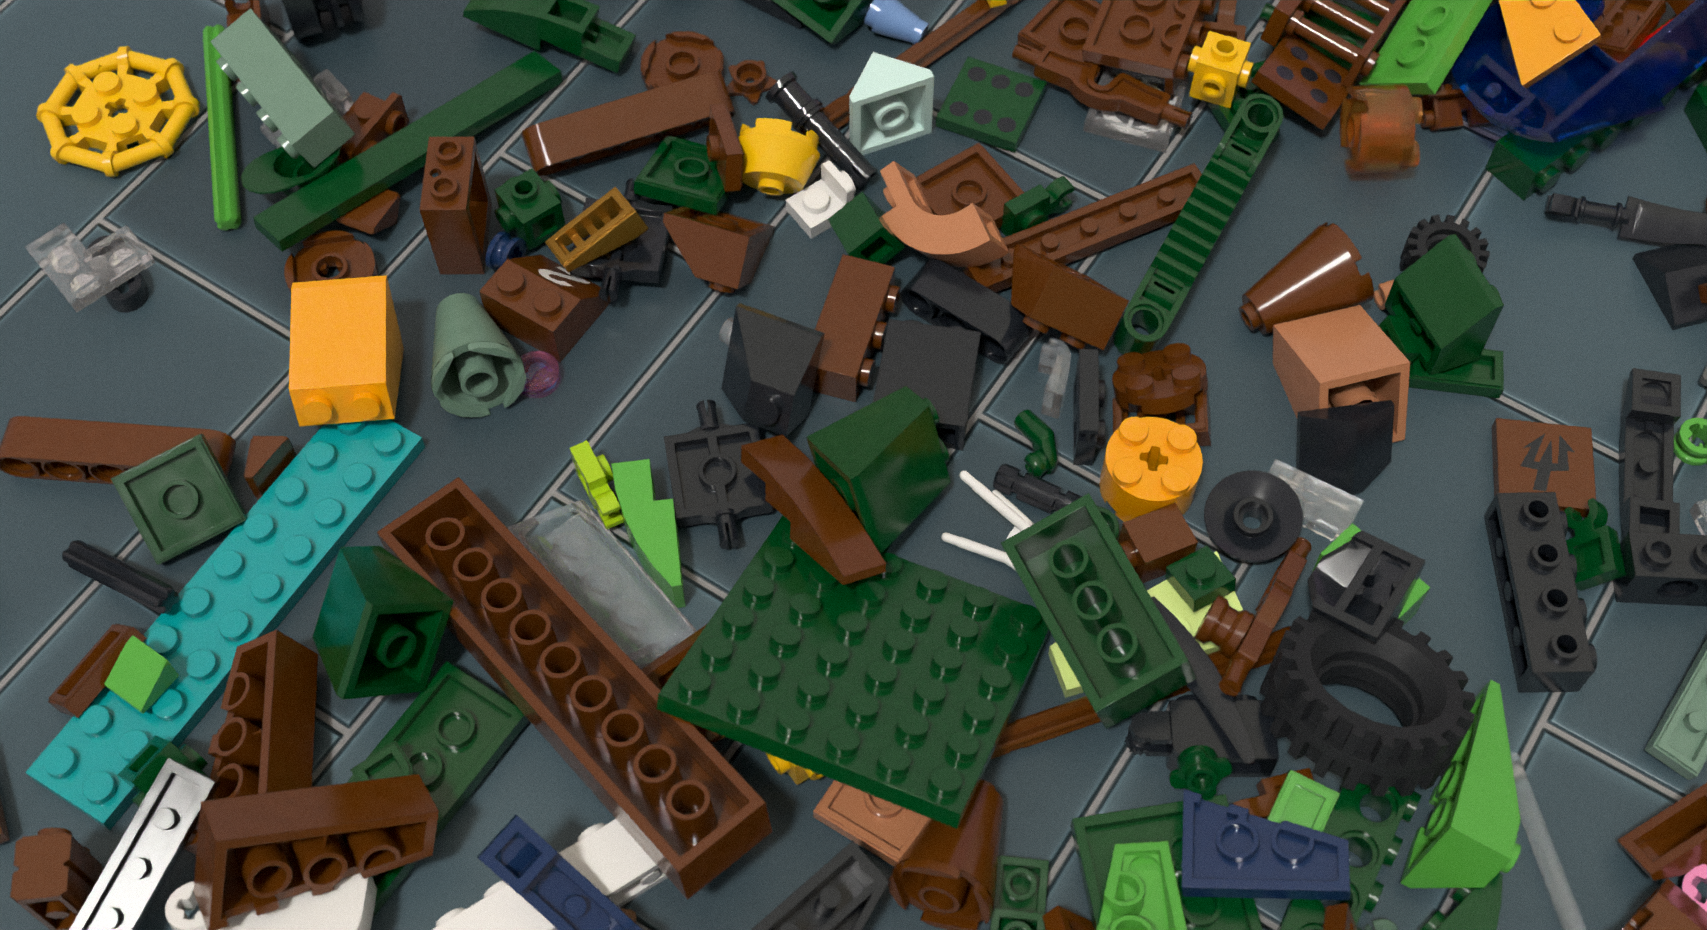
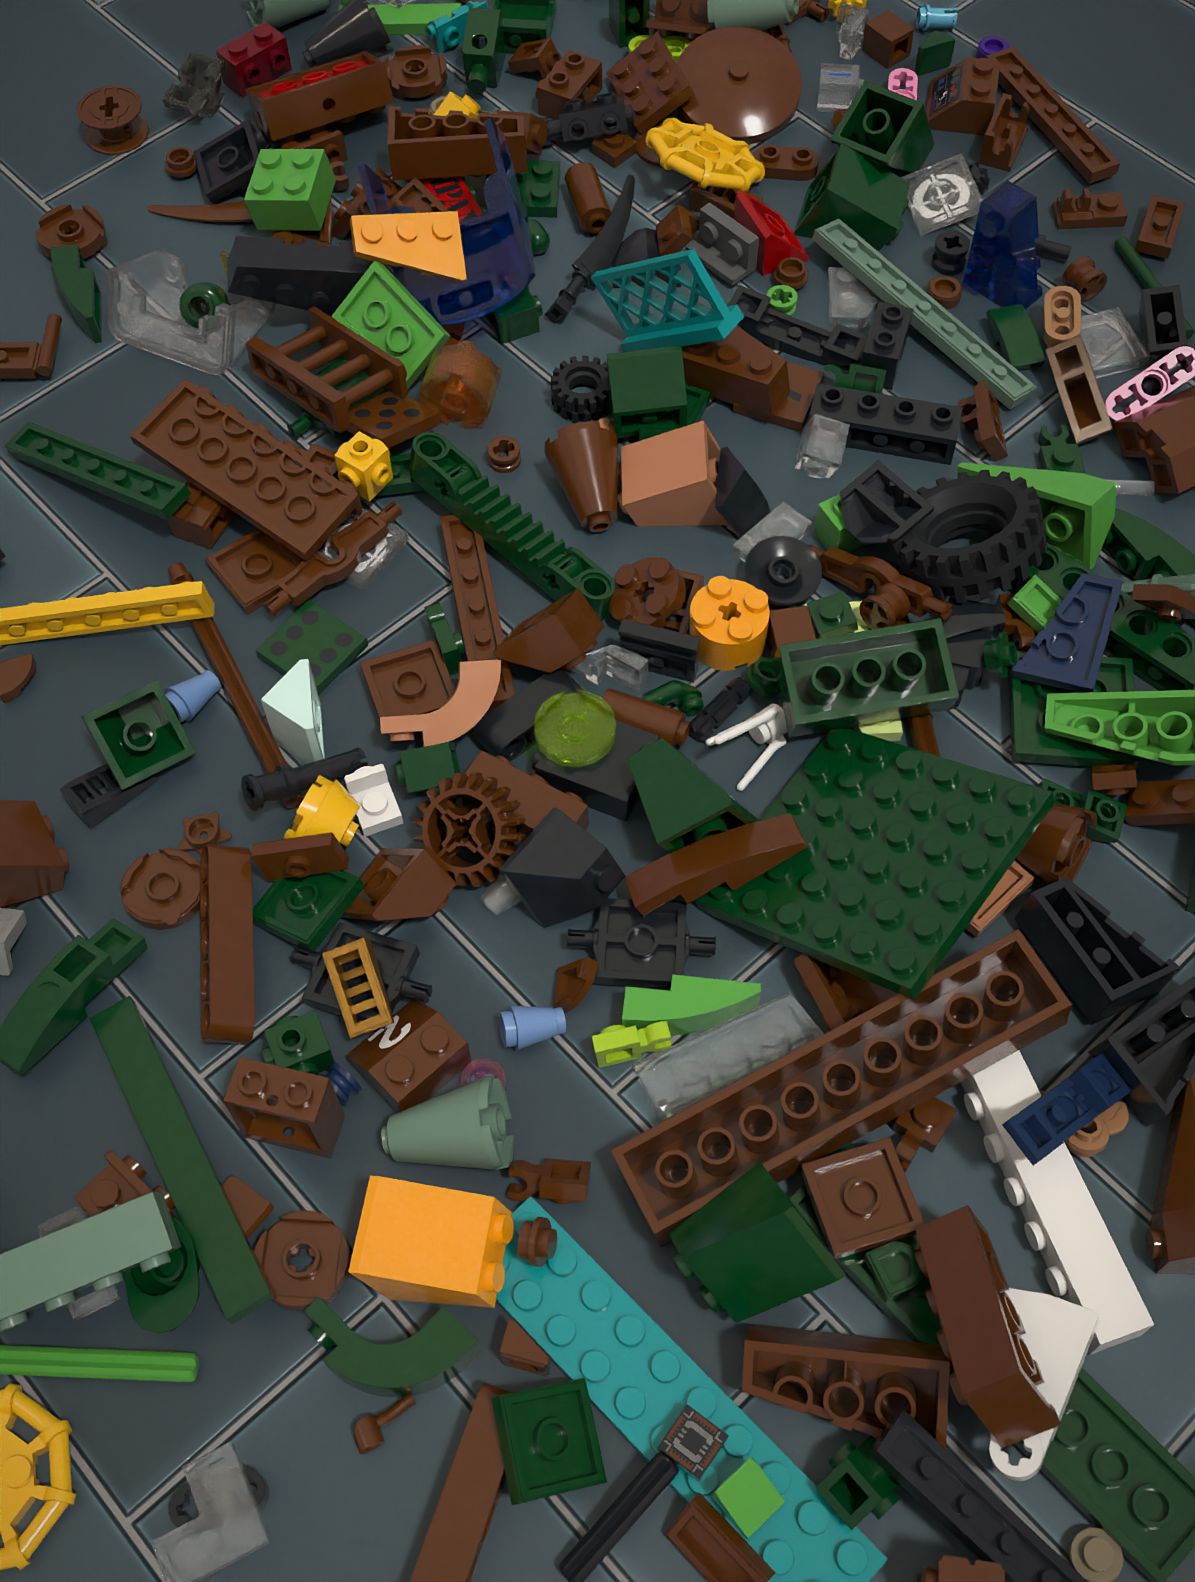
camera: 75 degrees left, 0 degrees up
(183, 365) = (368, 1429): none -> reddish brown hand
(188, 618) = (693, 1442): none -> tile
(237, 356) = (399, 1368): none -> dark green arch
(361, 440) = (537, 1241): none -> reddish brown plate
(437, 453) = (555, 1180): none -> reddish brown plate
(453, 726) = (861, 1198): none -> reddish brown plate
(561, 790) = (923, 1128): none -> reddish brown plate
(600, 394) = (529, 1025): none -> medium blue cone
(654, 422) = (574, 983): none -> reddish brown tile
(798, 274) = (444, 810): none -> reddish brown gear
(944, 341) = (575, 728): none -> clear neon green tile
(993, 414) = (649, 716): none -> reddish brown brick
(1320, 196) = (500, 445): none -> reddish brown bush
(1457, 520) = (821, 446): none -> clear brick
(1543, 394) = (738, 371): none -> reddish brown wedge
(1559, 308) = (675, 327): none -> teal fence
(1584, 828) = (1058, 455): none -> dark green plate
(1601, 717) = (985, 416): none -> reddish brown plate
(1667, 152) = (539, 237): none -> dark green cylinder

